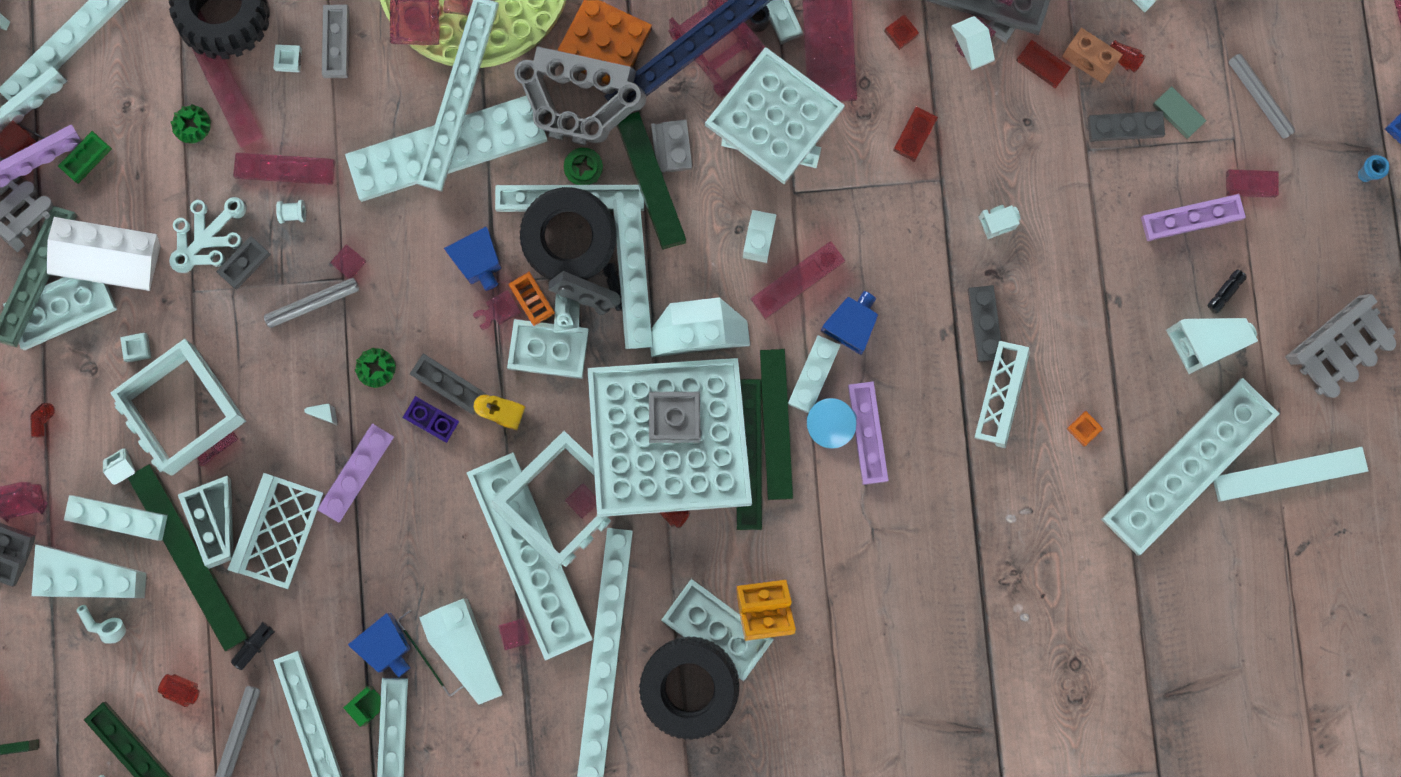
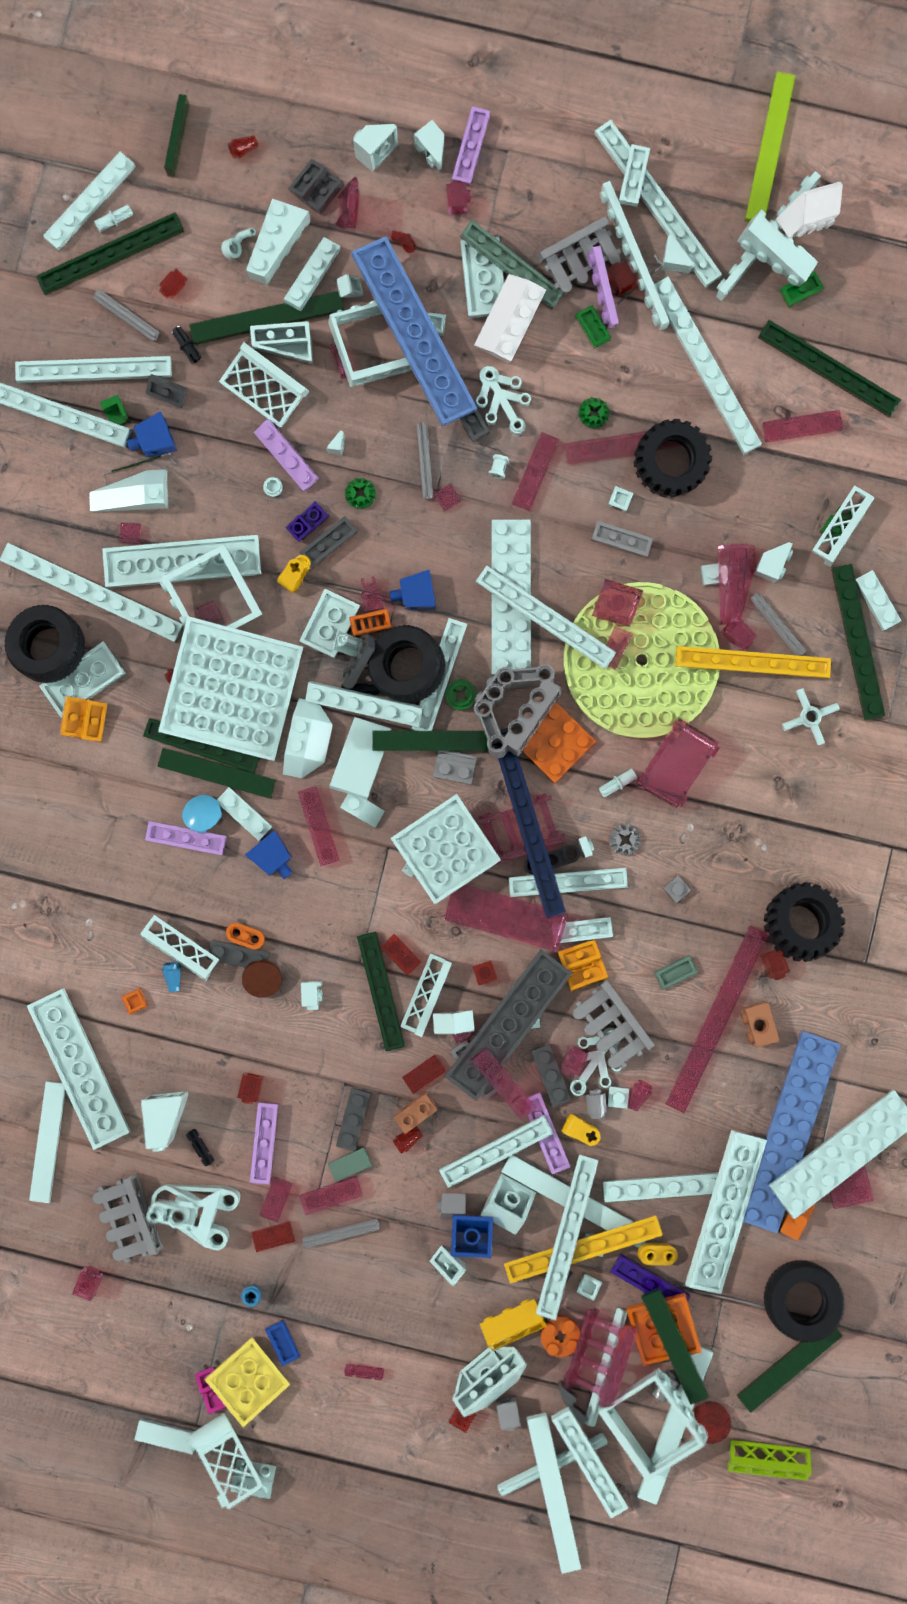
camera: 110 degrees right, 5 degrees up
(151, 362) = (414, 331): none -> medium blue plate
(319, 649) = (166, 390): none -> dark grey plate
(400, 476) = (273, 487): none -> light aqua plate
(674, 417) = (242, 697): light grey tile -> none
(706, 255) = (358, 762): none -> light aqua tile
(955, 80) = (438, 984): none -> light aqua fence
(960, 323) = (245, 936): none -> orange plate
(966, 144) = (381, 991): none -> dark green tile
(1003, 284) = (261, 978): none -> copper tile
(1036, 393) = (172, 973): none -> dark azure cone
(1135, 254) = (250, 1088): none -> clear red brick
(1223, 121) = (330, 1195): none -> clear pink plate
(1295, 172) = (273, 1236): none -> clear red tile
(1323, 289) = (164, 1210): none -> light aqua connector

